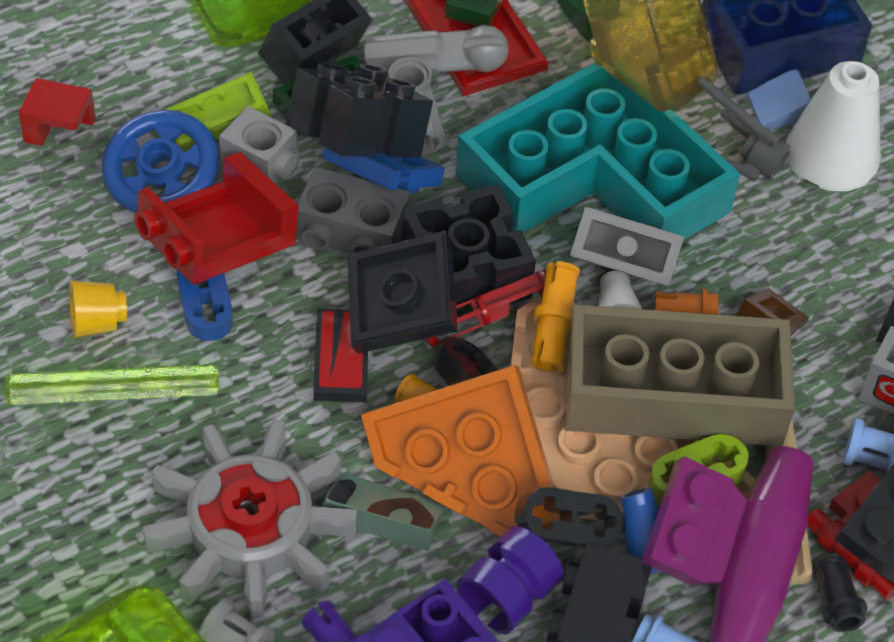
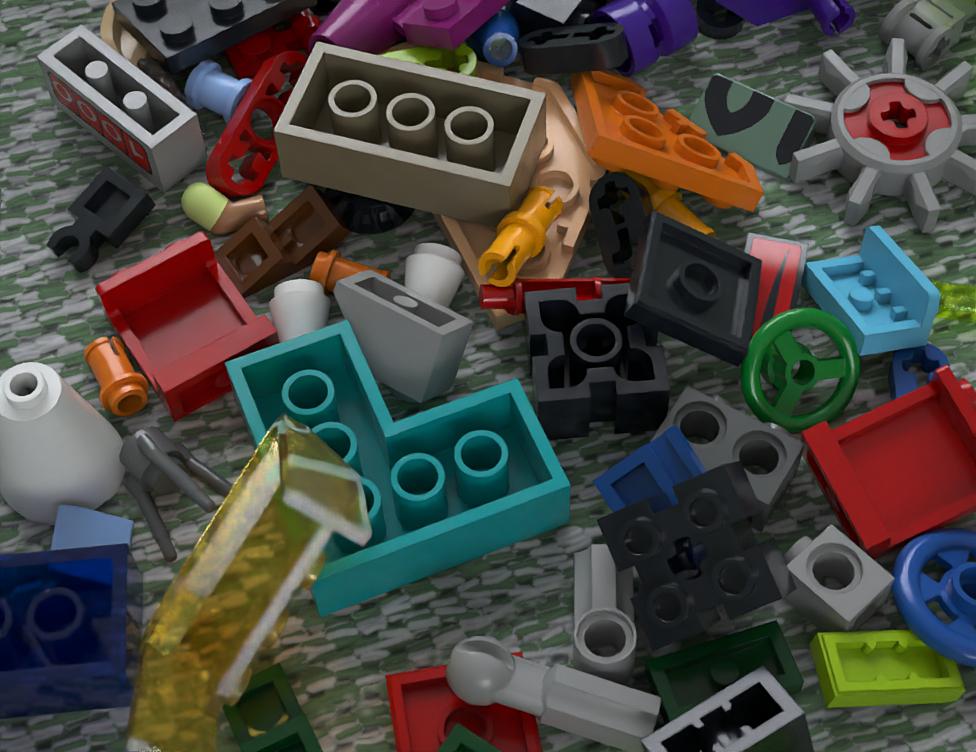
camera: 160 degrees left, 5 degrees up
(258, 346) = (876, 295): none -> medium azure bracket
(307, 282) = (775, 352): none -> green piece
(709, 263) = (299, 308): none -> white cone
(789, 247) = (183, 323): none -> red panel
(811, 399) = (240, 137): none -> red beam
(817, 346) = (219, 213): none -> arm
(826, 205) = (116, 377): none -> orange pin

